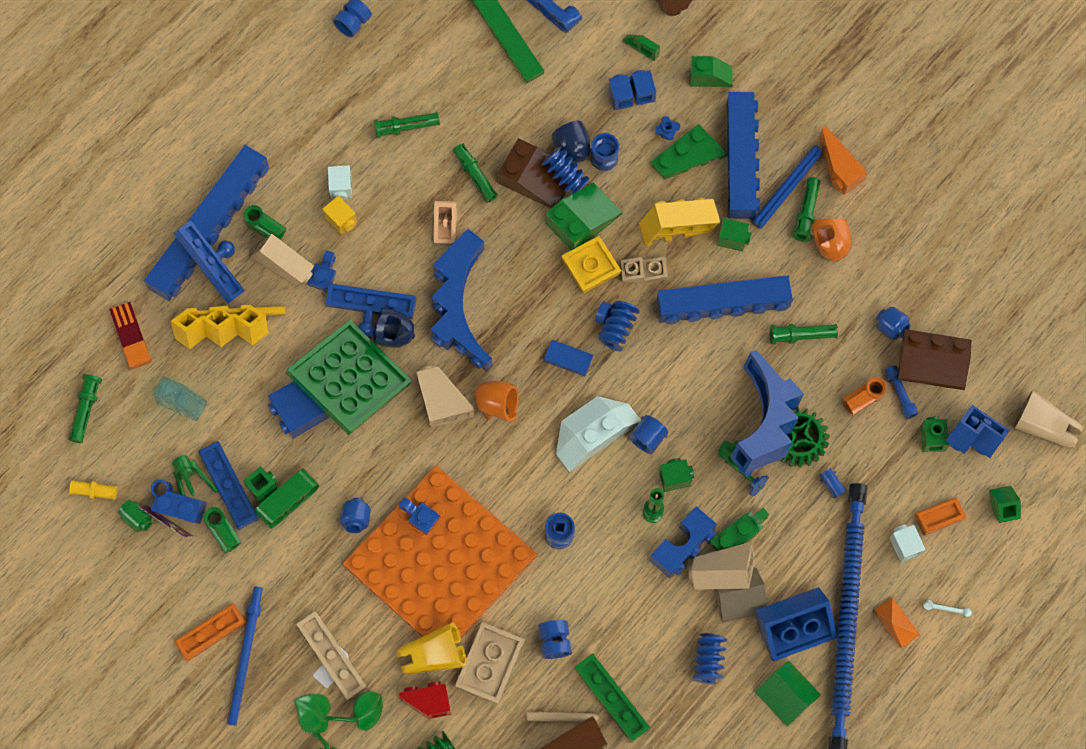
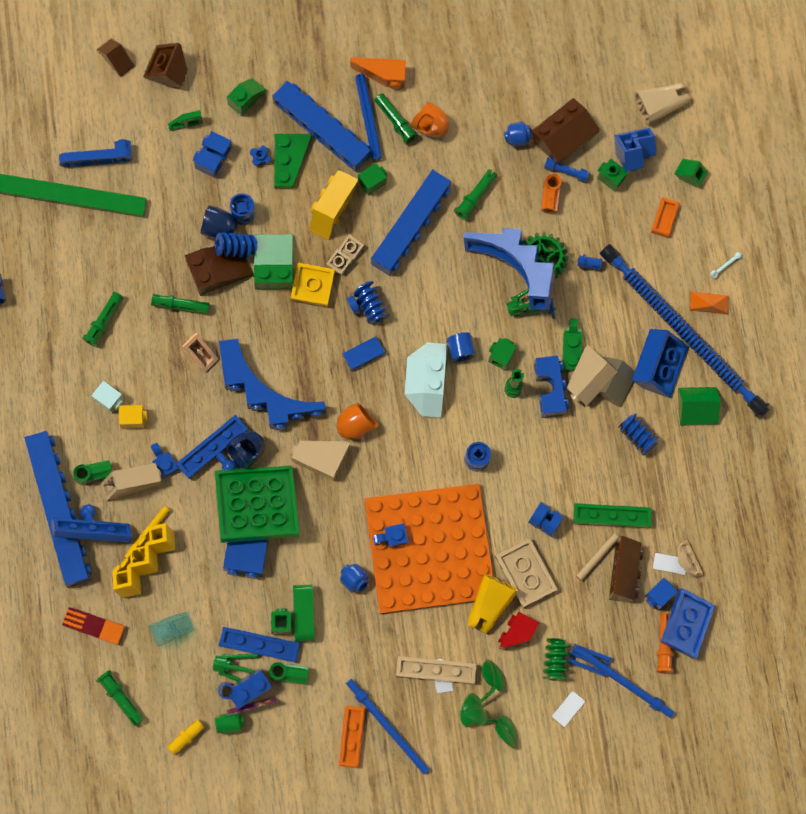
camera: 55 degrees left, 5 degrees up
(907, 542) = (666, 252): light aqua brick -> none

